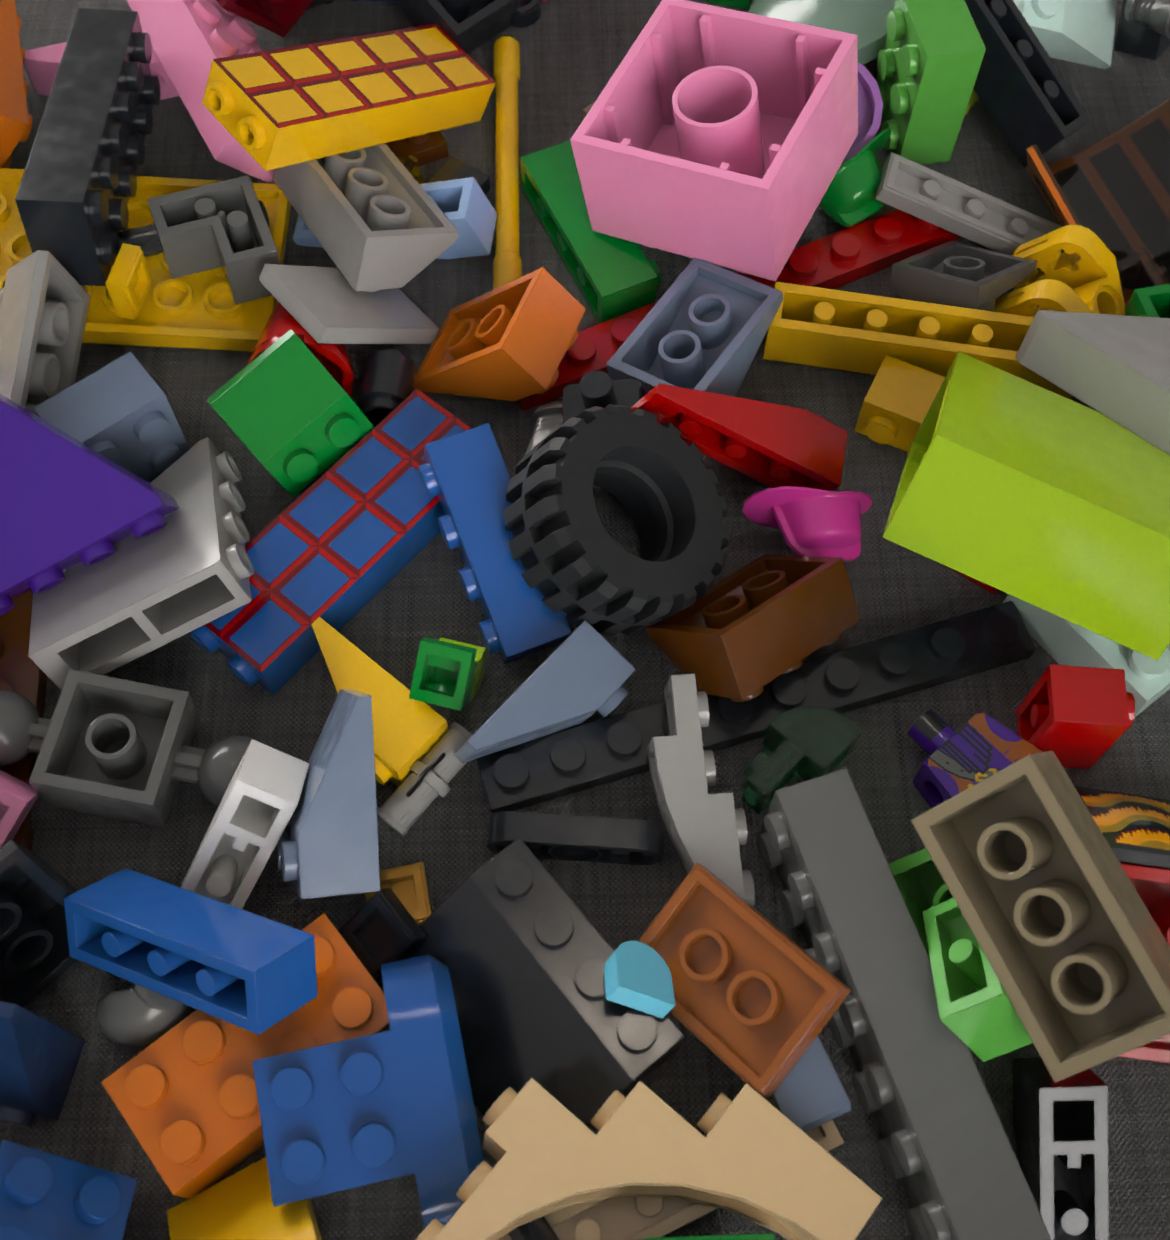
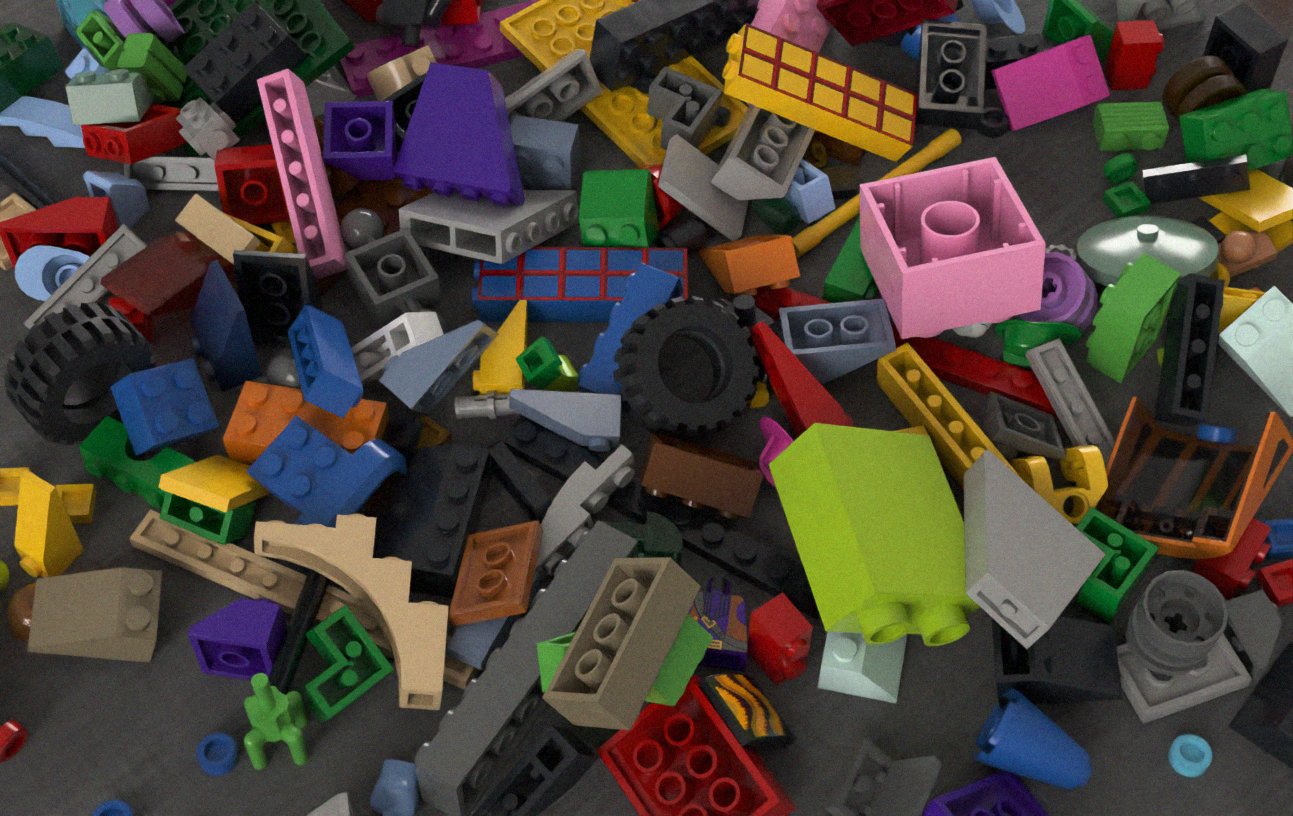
camera: 50 degrees right, 10 degrees down
(129, 281) = (623, 98): yellow tile -> none
(447, 273) = (777, 214): none -> clear green brick
(639, 979) = (460, 533): medium azure tile -> none
(1096, 131) = (1216, 433): none -> blue tile

